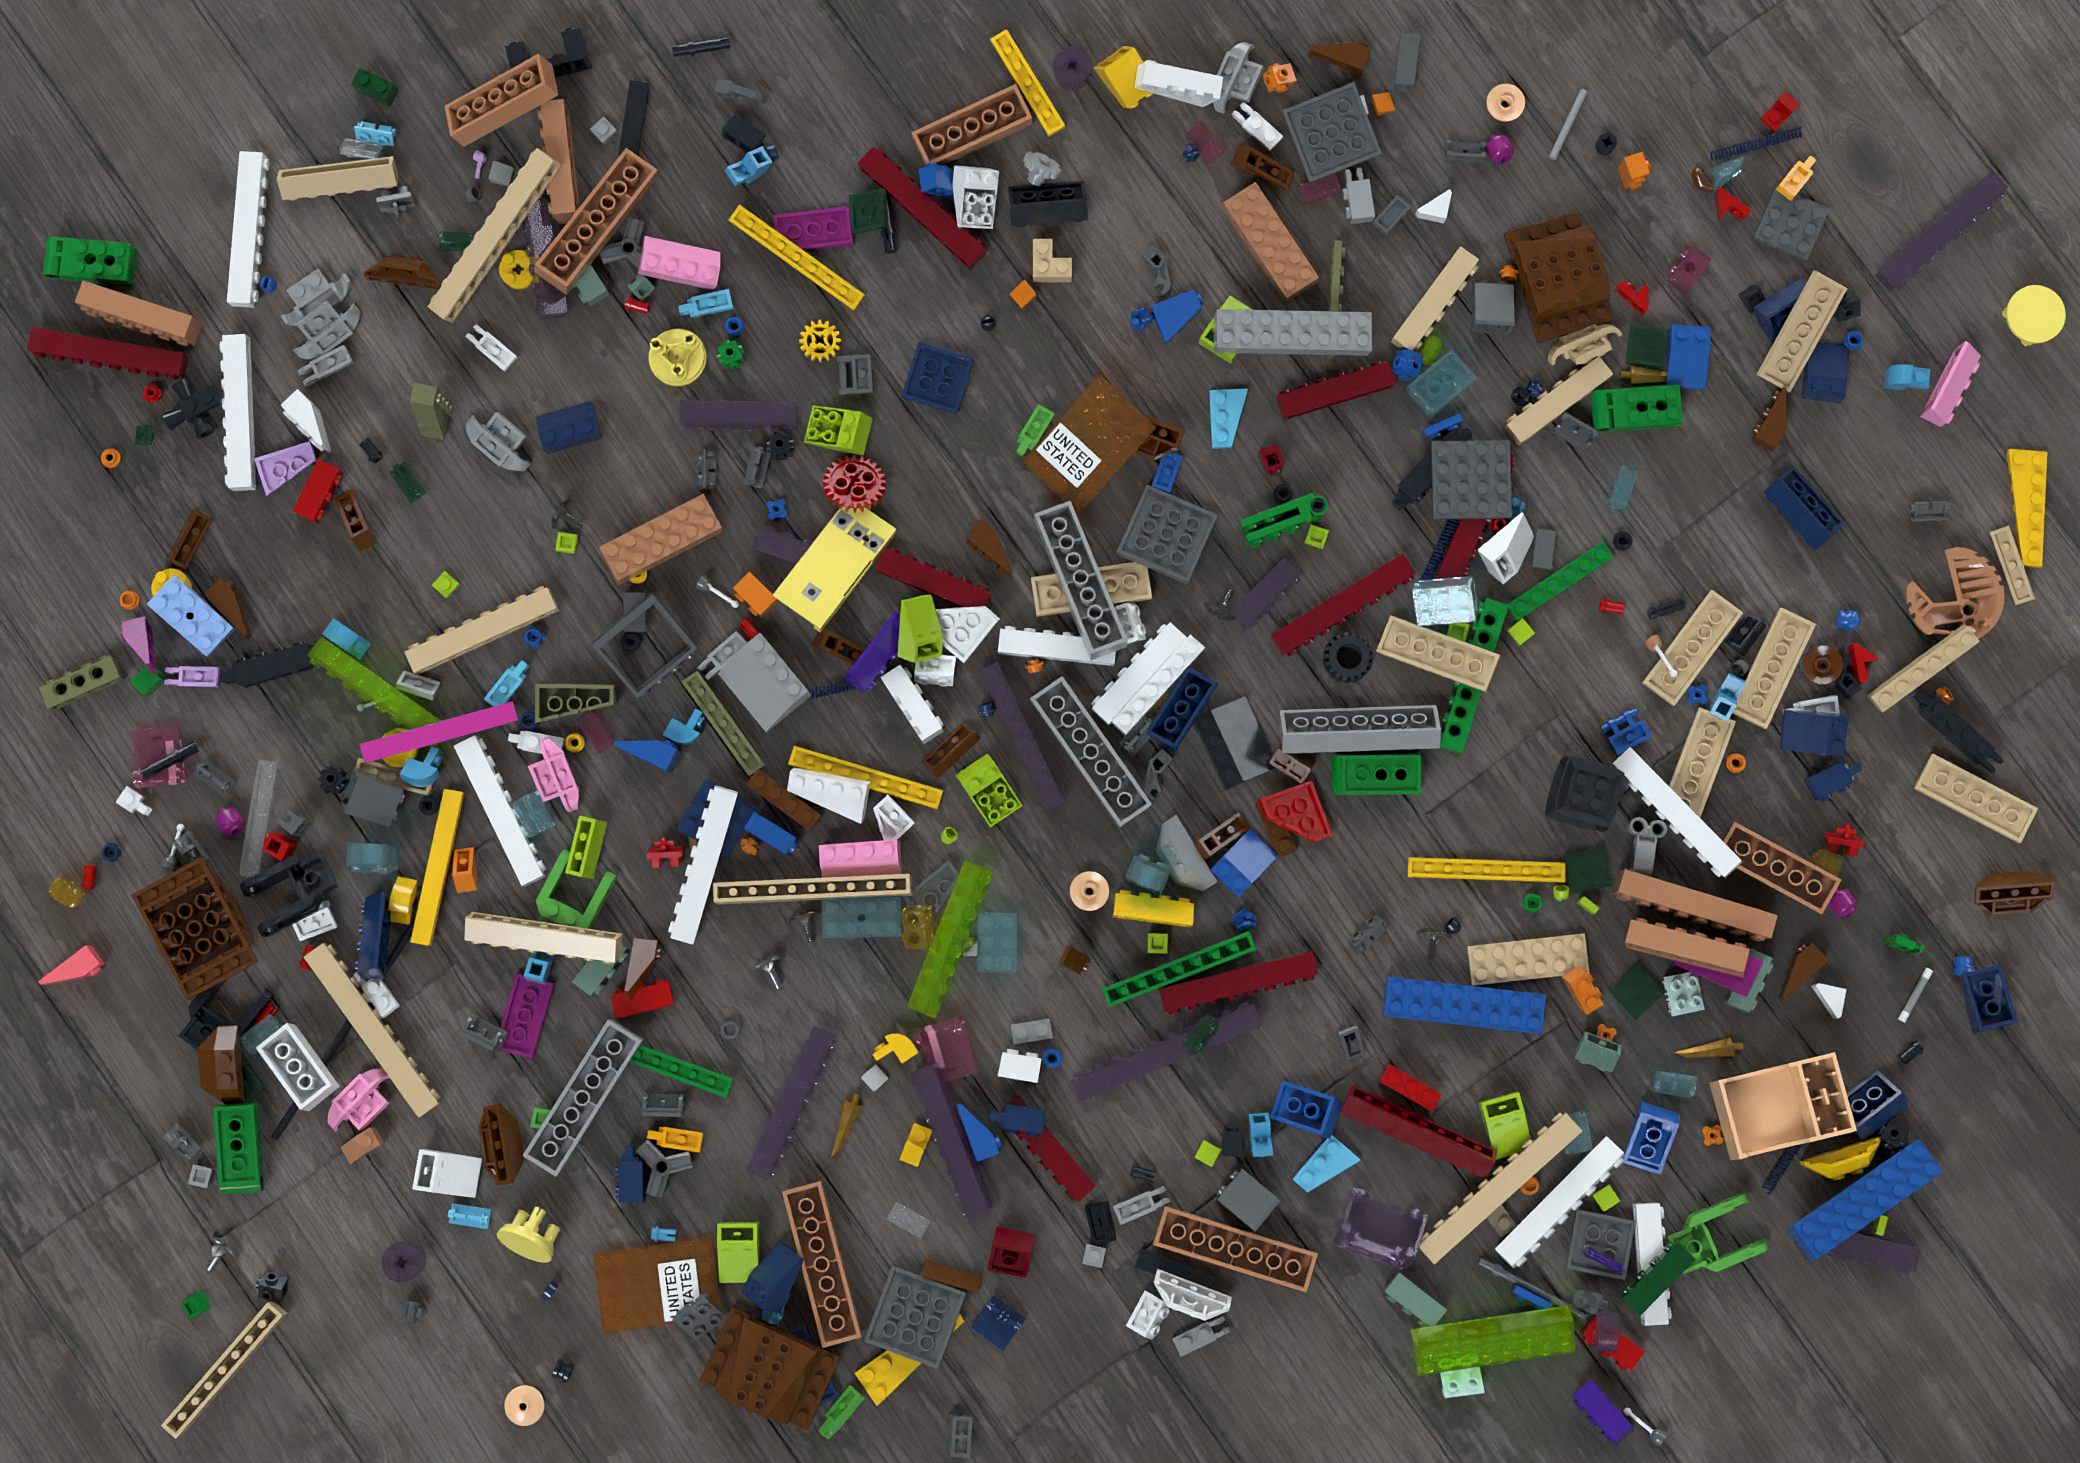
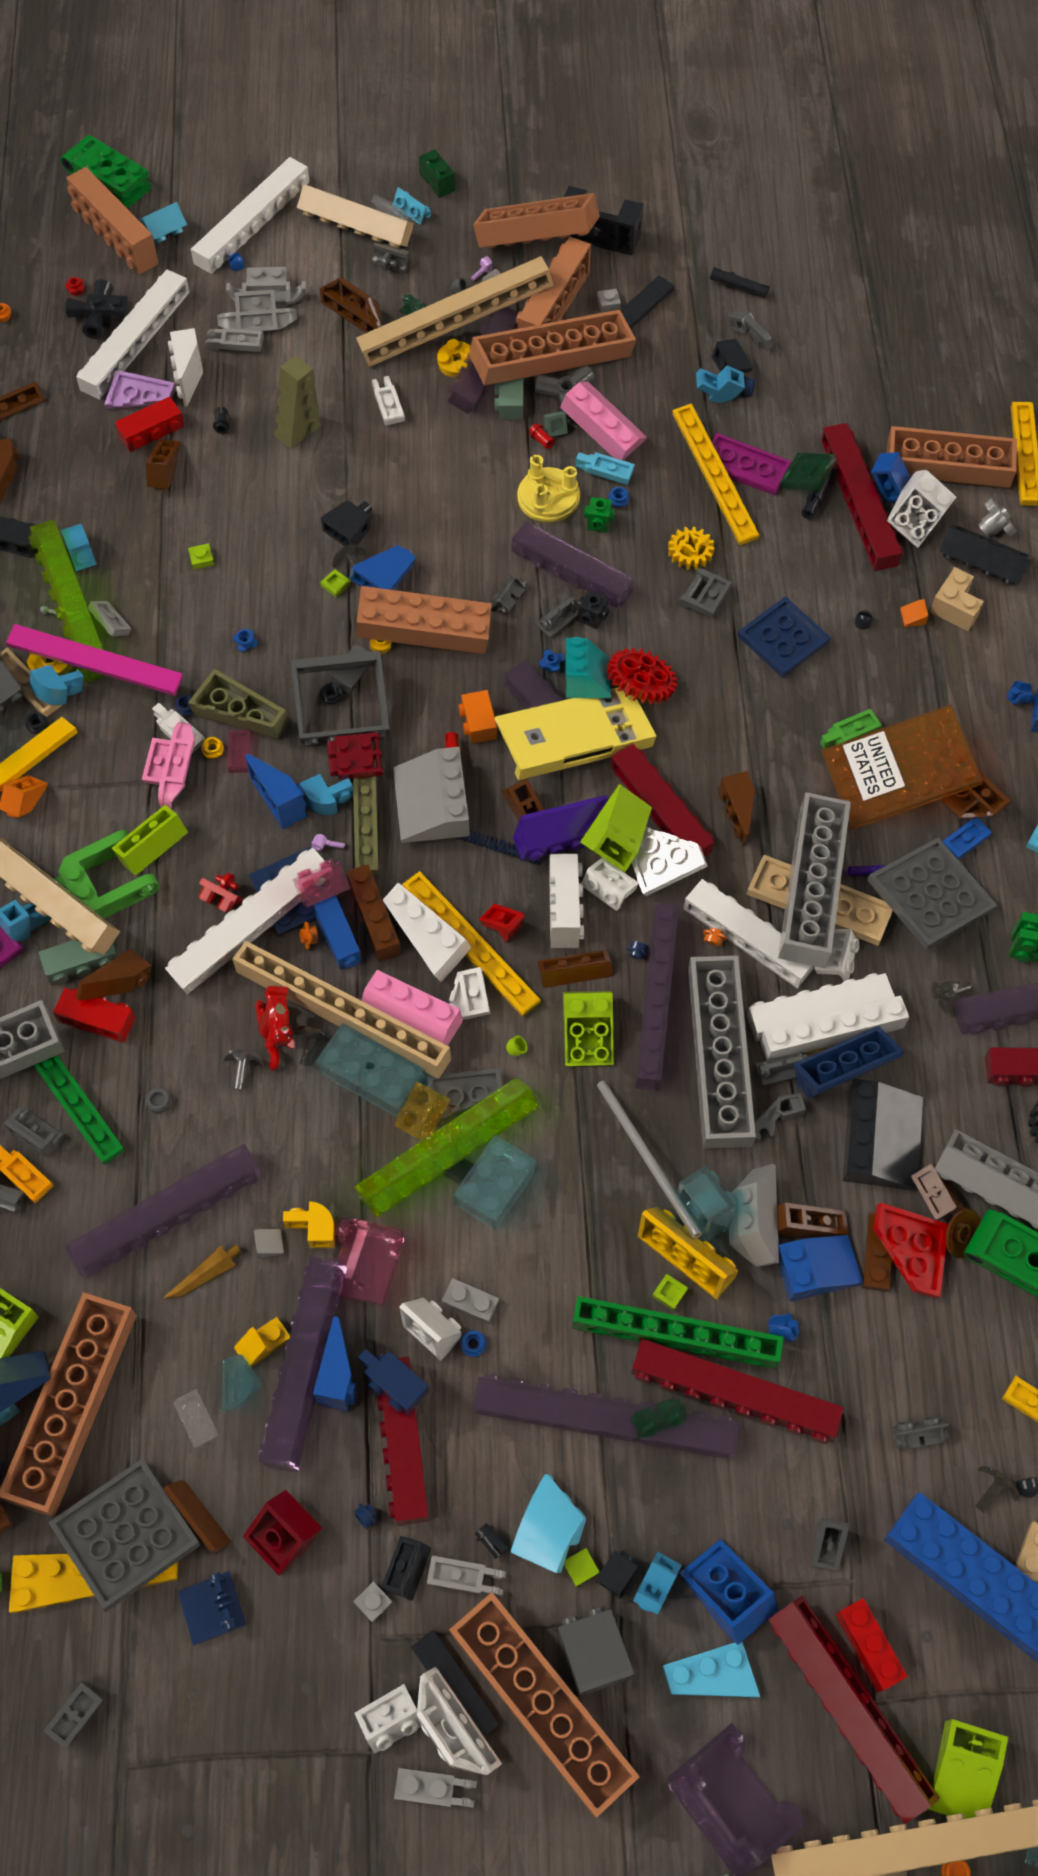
camera: 30 degrees right, 20 degrees down
(107, 353) = (63, 238): dark red brick -> none
(144, 435) = (42, 309): clear green plate -> none
(176, 285) = (164, 221): none -> medium azure slope
(407, 482) = (232, 459): clear green hinge -> none
(481, 630) = (202, 607): tan brick -> none
(498, 441) = (337, 470): light grey plate -> none
(500, 811) = (96, 765): white brick -> none
(507, 685) = (193, 662): medium azure hinge -> none
(533, 814) = (124, 783): clear light blue hinge -> none
(541, 484) = (347, 522): none -> black torso
(568, 428) = (406, 496): dark blue slope -> none
(600, 513) = (384, 569): none -> blue slope
(687, 686) = (353, 756): none -> dark red plate
(705, 584) = (437, 684): hinge -> none
(706, 767) = (320, 840): none -> lavender hand
(723, 654) = (406, 751): light grey hinge -> none
(740, 820) = (335, 882): none -> clear pink brick
(774, 929) = (273, 1023): none -> red animal
(811, 506) = (586, 670): none -> teal slope
(838, 429) = (659, 628): lime slope -> none
(878, 748) = (503, 920): none -> red slope
(919, 1181) = (238, 1383): none -> clear light blue slope
(1055, 1208) = (365, 1515): none -> dark blue plate
(1074, 960) = (565, 1245): reddish brown slope -> none
(1089, 863) = (649, 1160): none -> light grey piece
(1089, 880) = (631, 1179): light nougat dish -> none
(1110, 541) = (862, 870): none -> dark purple piece
(1173, 1143) = (548, 1527): none -> medium azure slope
(1322, 782) = (961, 1231): none -> reddish brown dish

